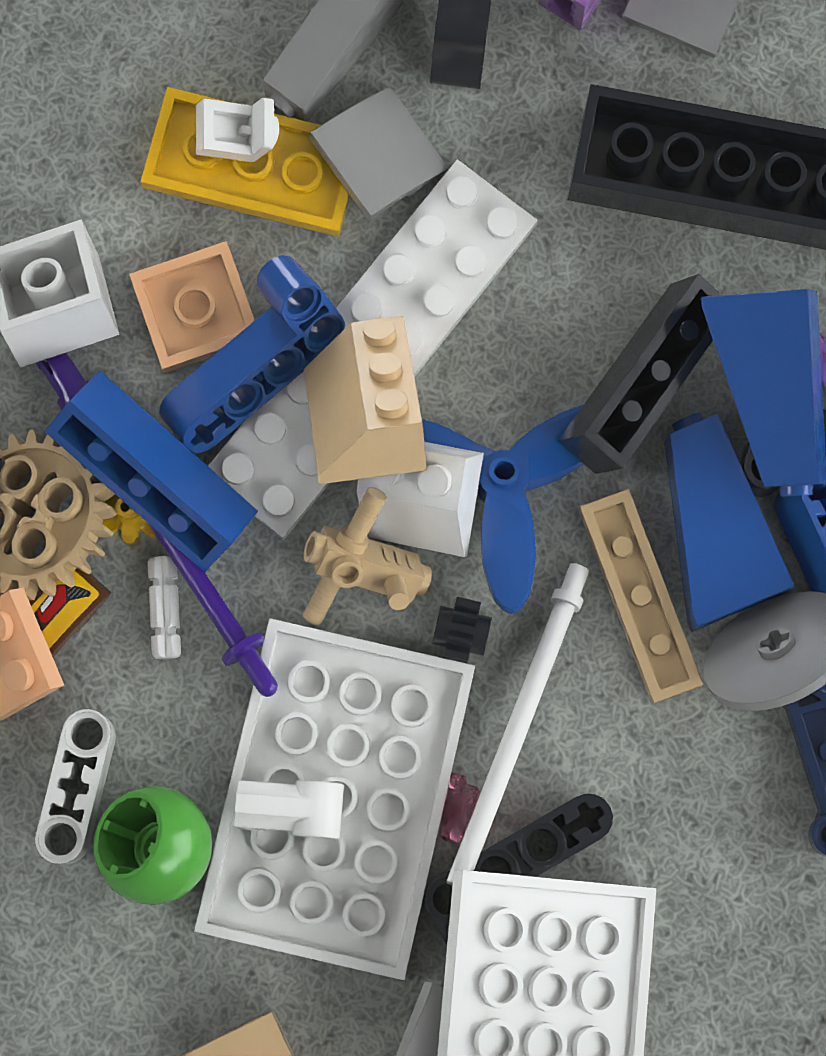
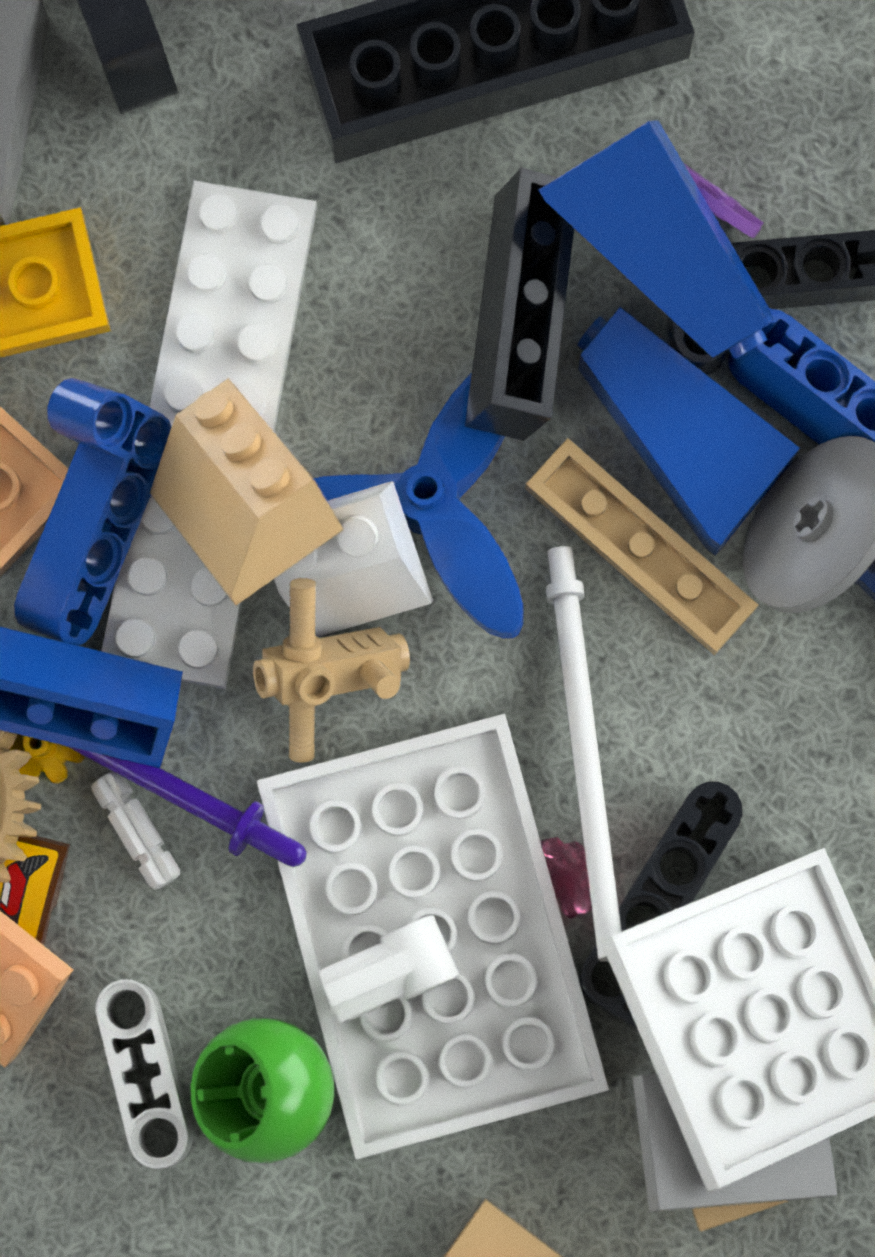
camera: 20 degrees left, 0 degrees up
(378, 152) = (105, 217): light grey slope -> none
(462, 630) = (470, 683): black gear -> none

